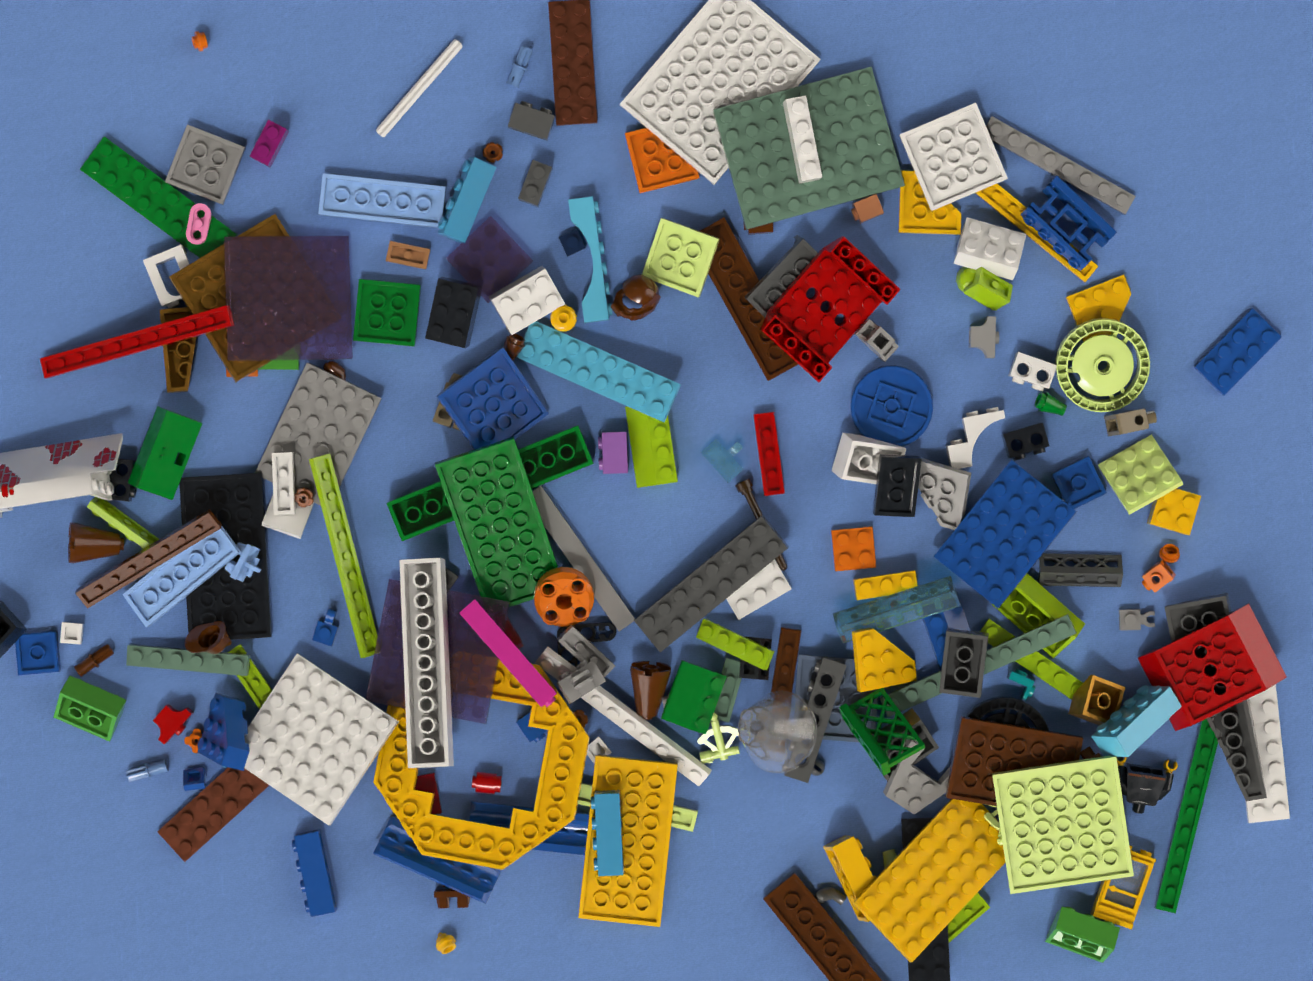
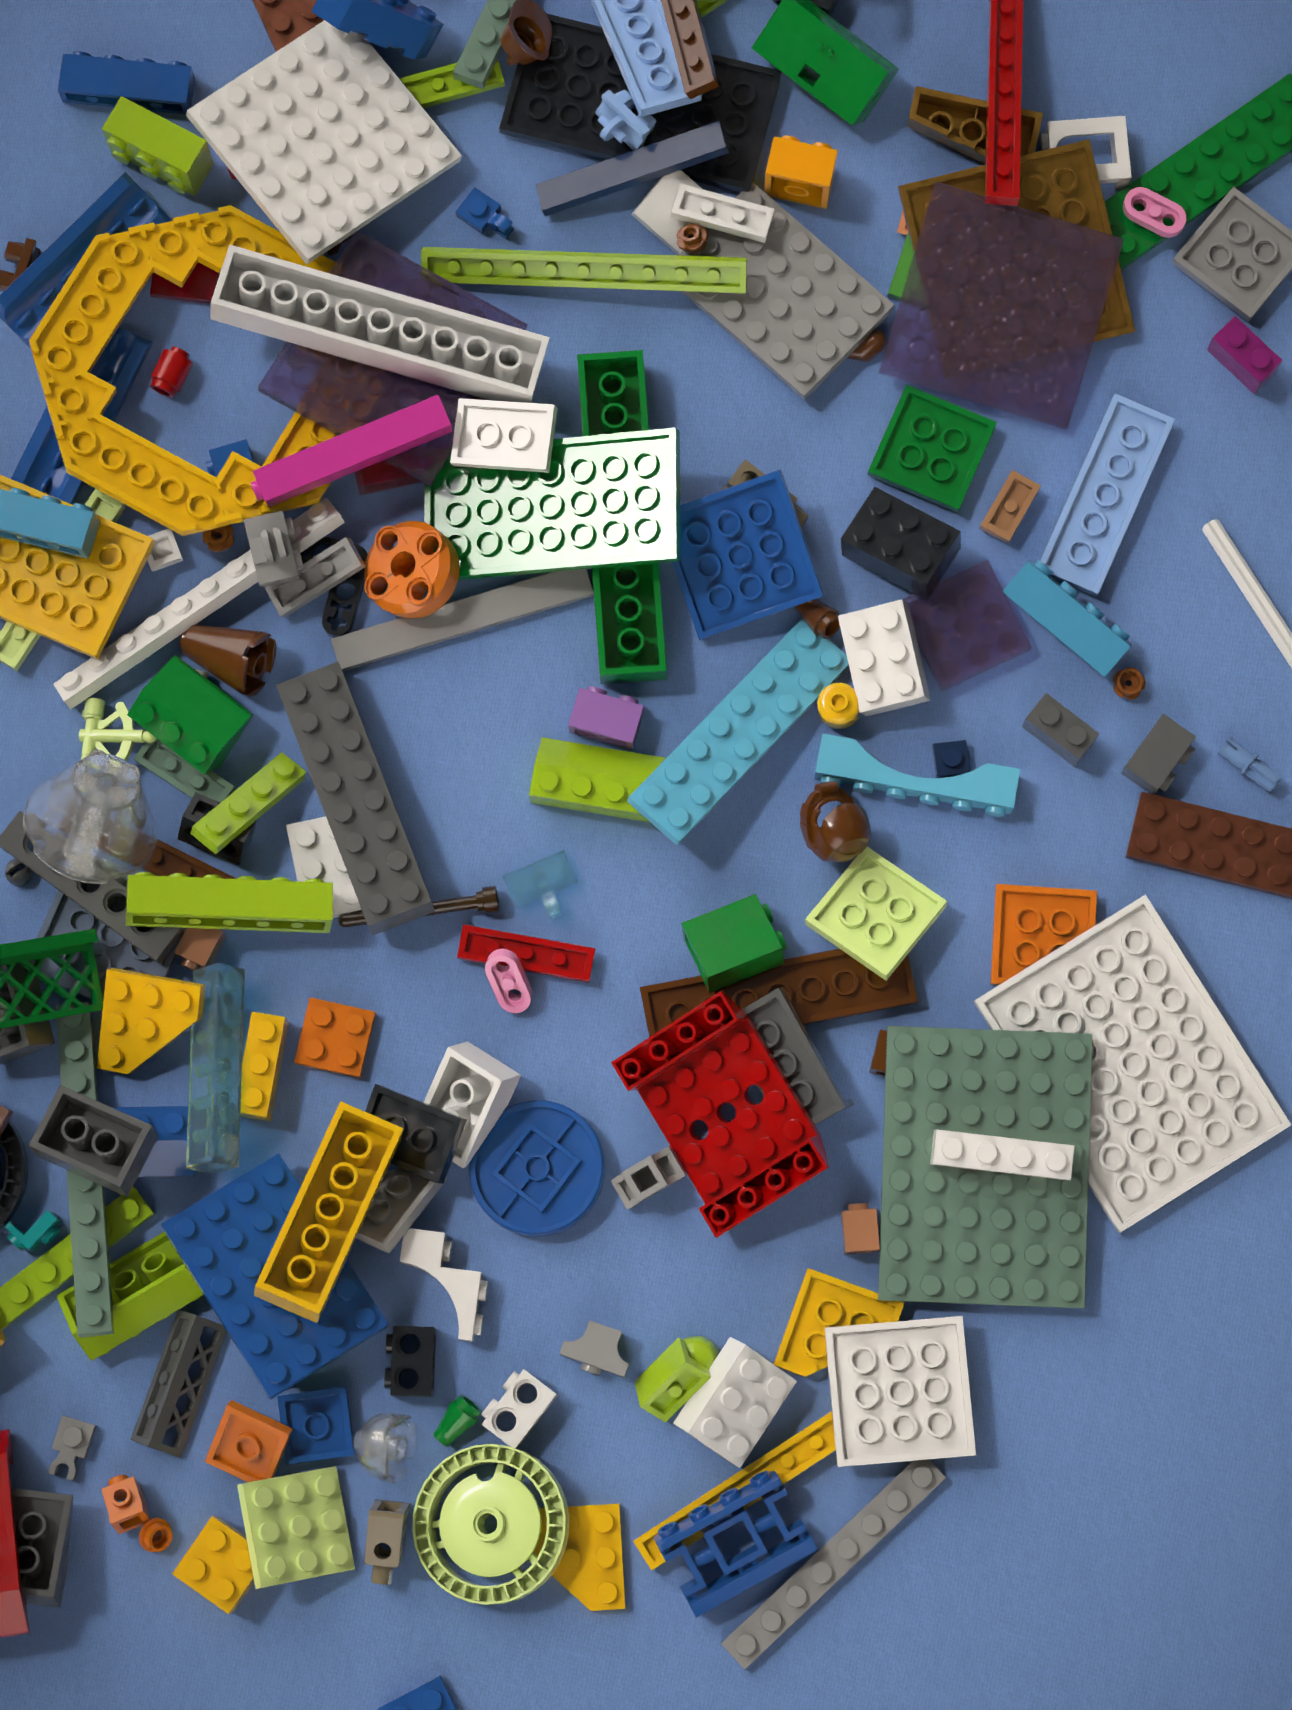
camera: 110 degrees right, 10 degrees down
(241, 444) = (800, 171): none -> light orange brick
(272, 547) = (632, 168): none -> tile
(352, 838) = (157, 147): none -> lime brick
(467, 567) = (503, 435): none -> white plate
(725, 334) = (734, 942): none -> green brick
(786, 461) = (507, 978): none -> bright pink plate
(800, 634) = (229, 903): none -> lime brick
(826, 645) = (199, 947): none -> nougat brick
(960, 513) = (328, 1212): none -> yellow brick
(1078, 440) = (385, 1445): none -> clear cylinder
(1102, 517) = (248, 1443): none -> orange plate

